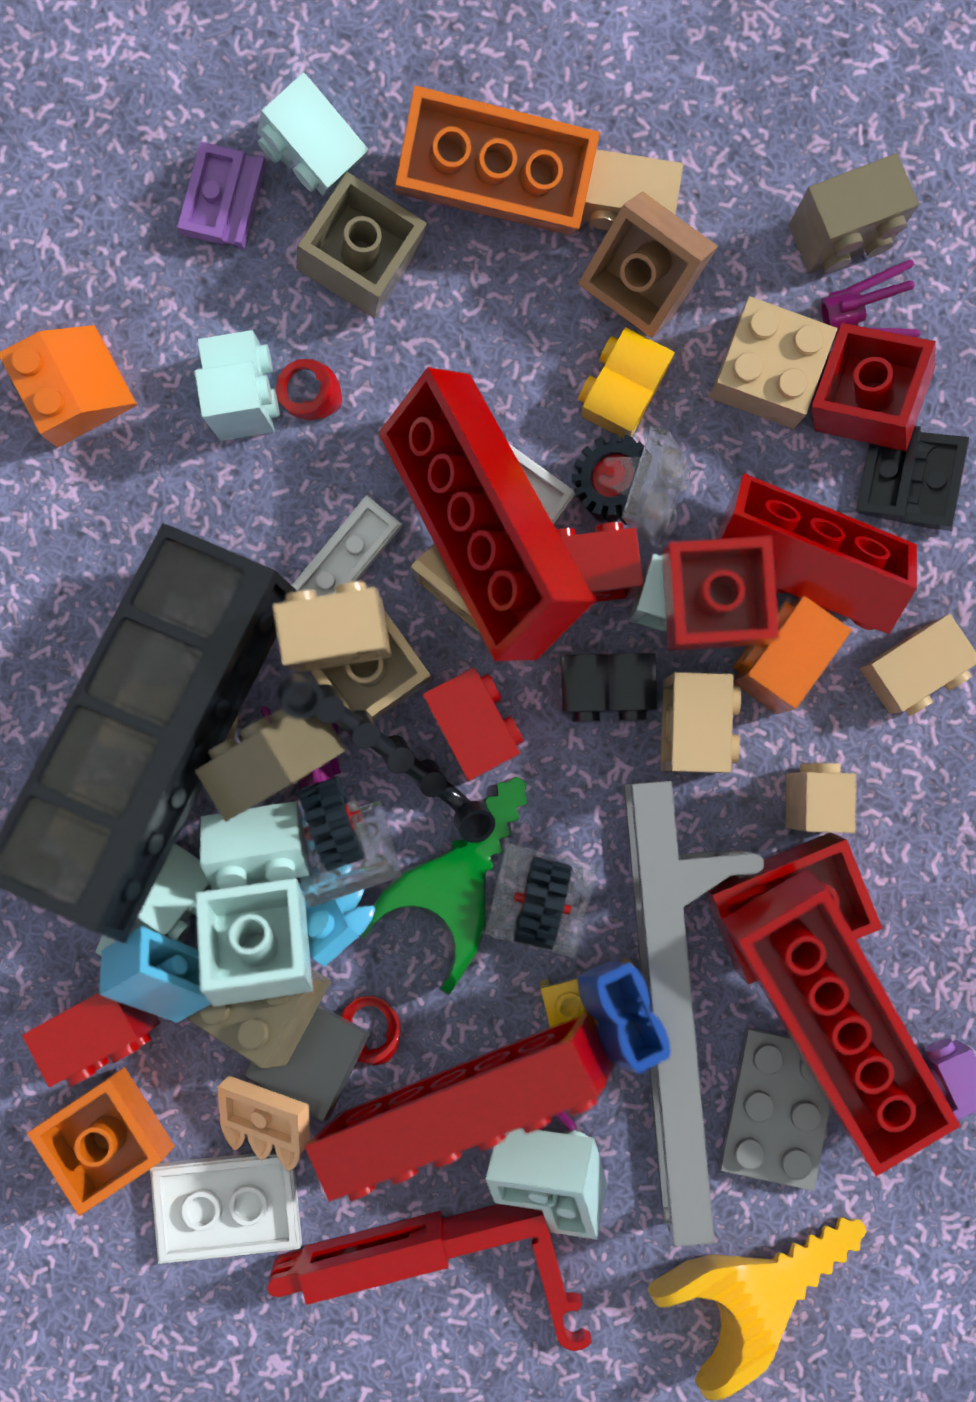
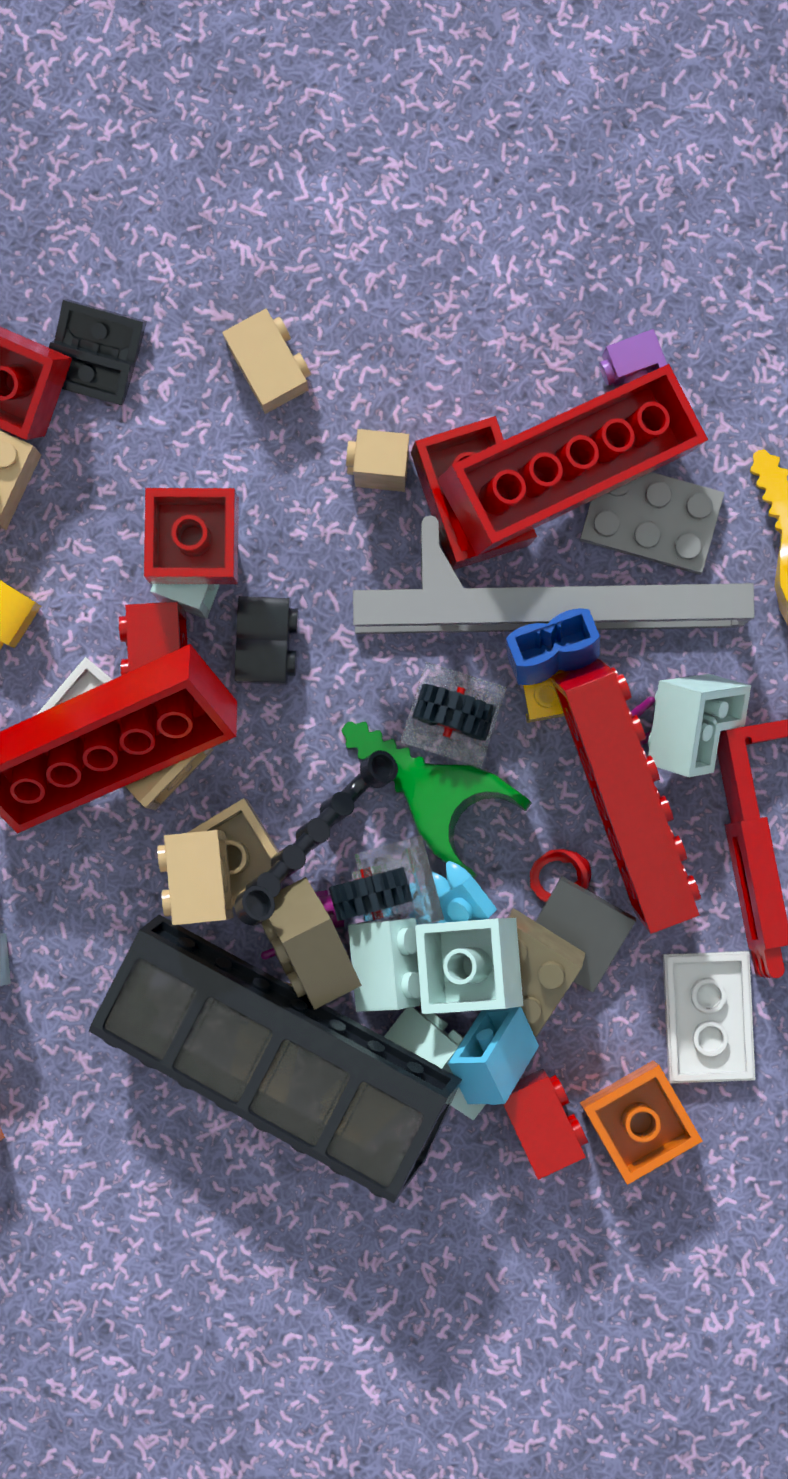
camera: 85 degrees left, 0 degrees up
(265, 1119) = (631, 974): light nougat plate -> none
(350, 549) = (124, 869): white tile -> none
(473, 724) = (290, 763): red brick -> none
(634, 482) = (82, 604): clear plate -> none
(699, 723) = (304, 562): tan brick -> none
(788, 667) = (259, 479): orange brick -> none
(826, 554) = (159, 439): red brick -> none

